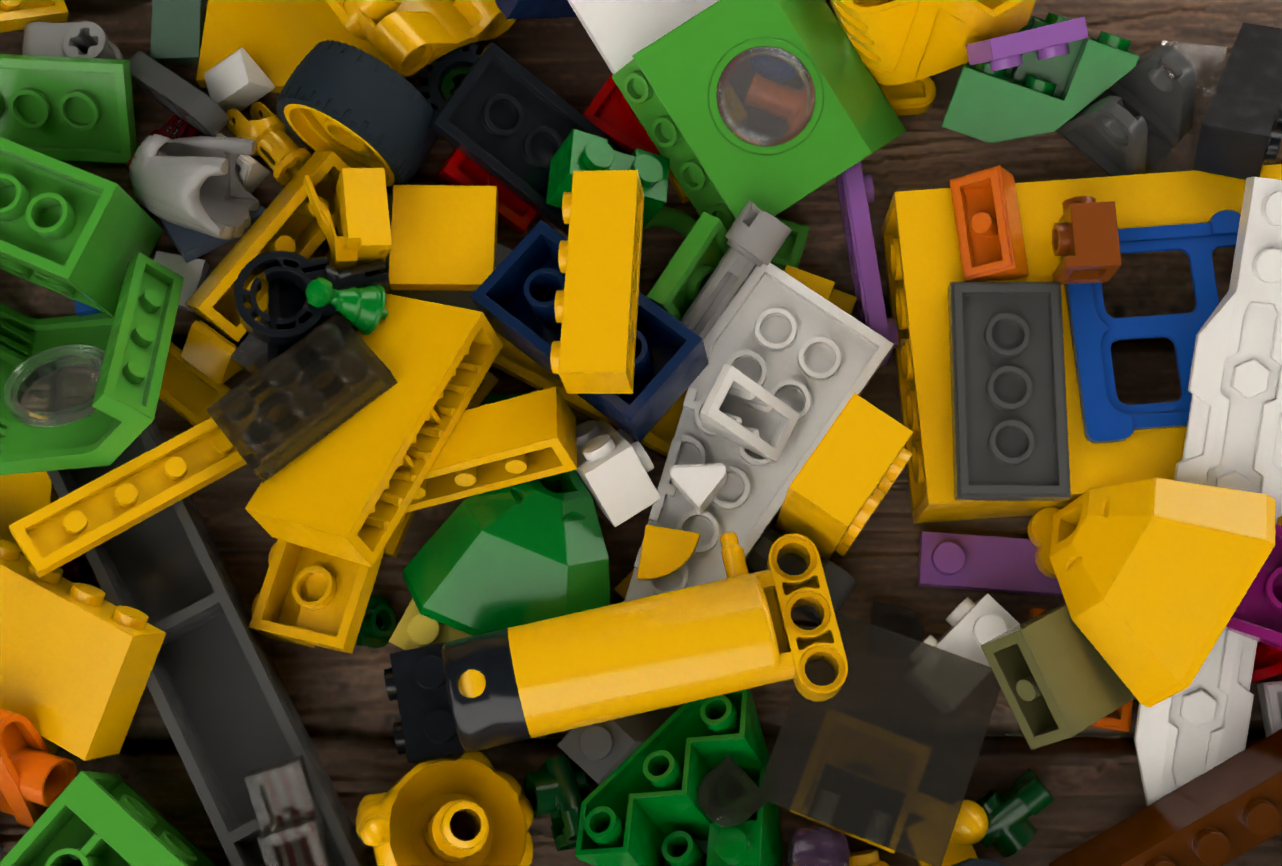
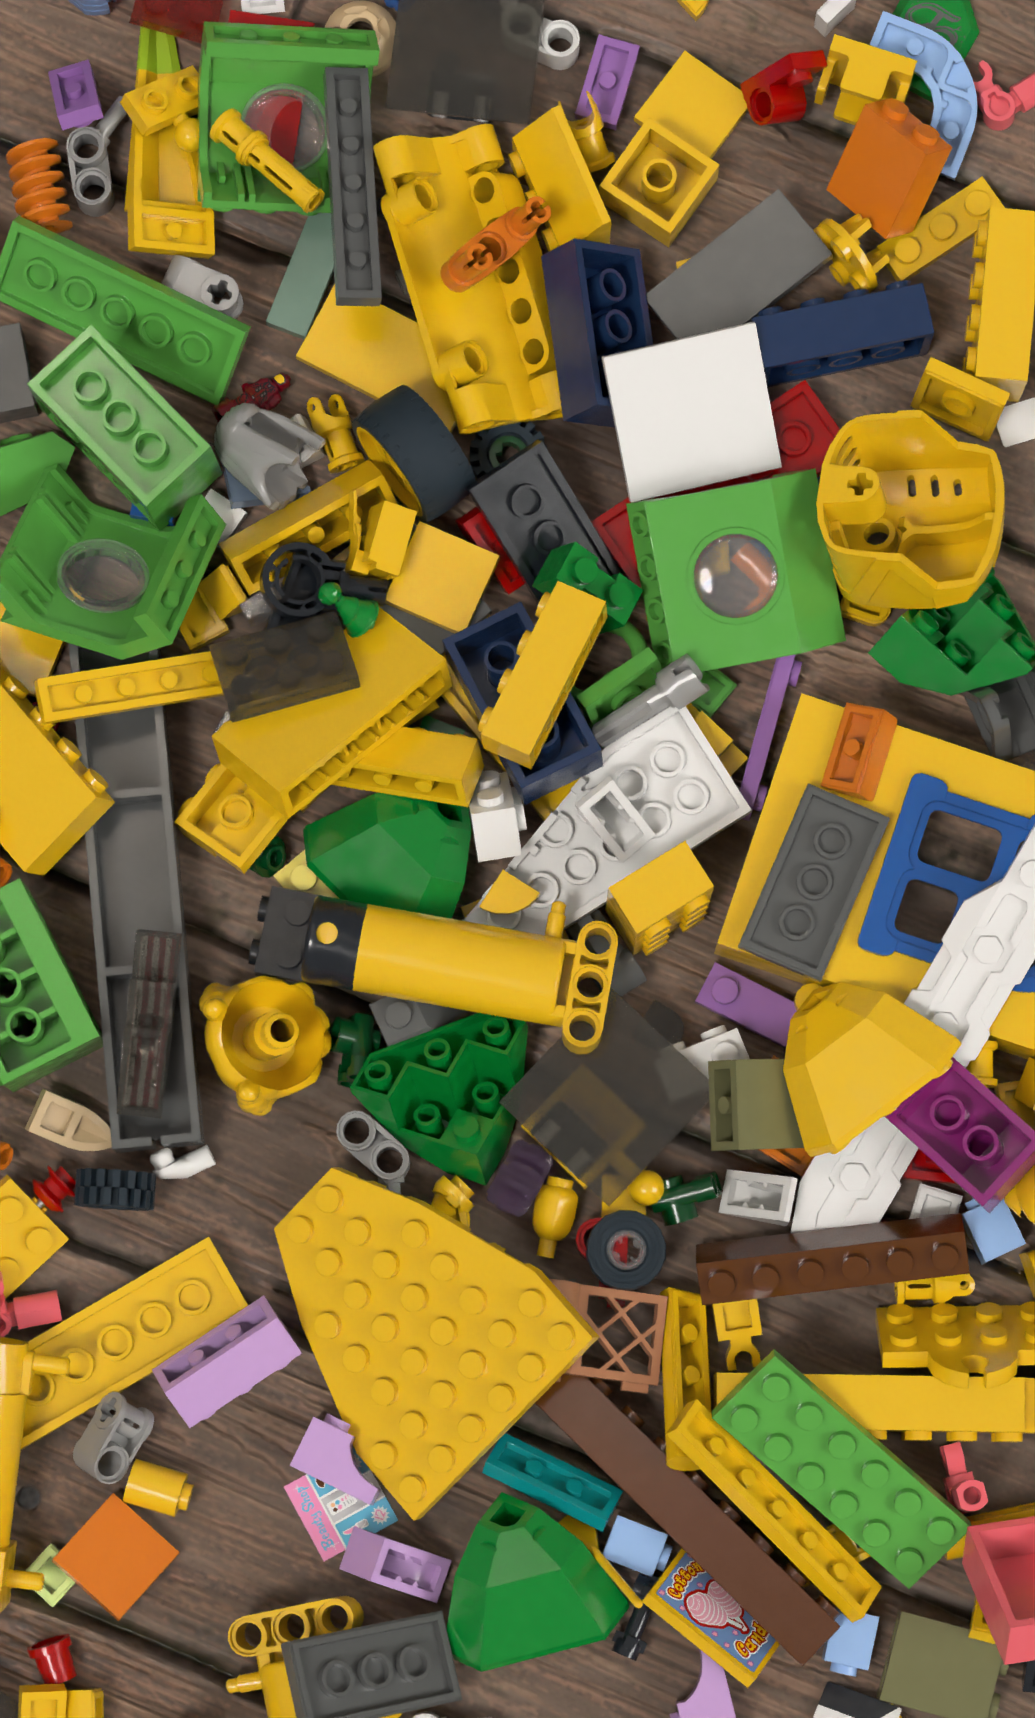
camera: 20 degrees right, 5 degrees up
(177, 95) = (277, 367): dark grey beam -> none
(237, 82) = (328, 374): white slope -> none
(699, 482) = (555, 855): white slope -> none
(729, 794) = (479, 1092): clear smoke tile -> none
(1046, 40) = (971, 621): medium lavender plate -> none
(1086, 241) = (920, 795): dark orange brick -> none
(1097, 776) = (758, 1196): none -> white slope

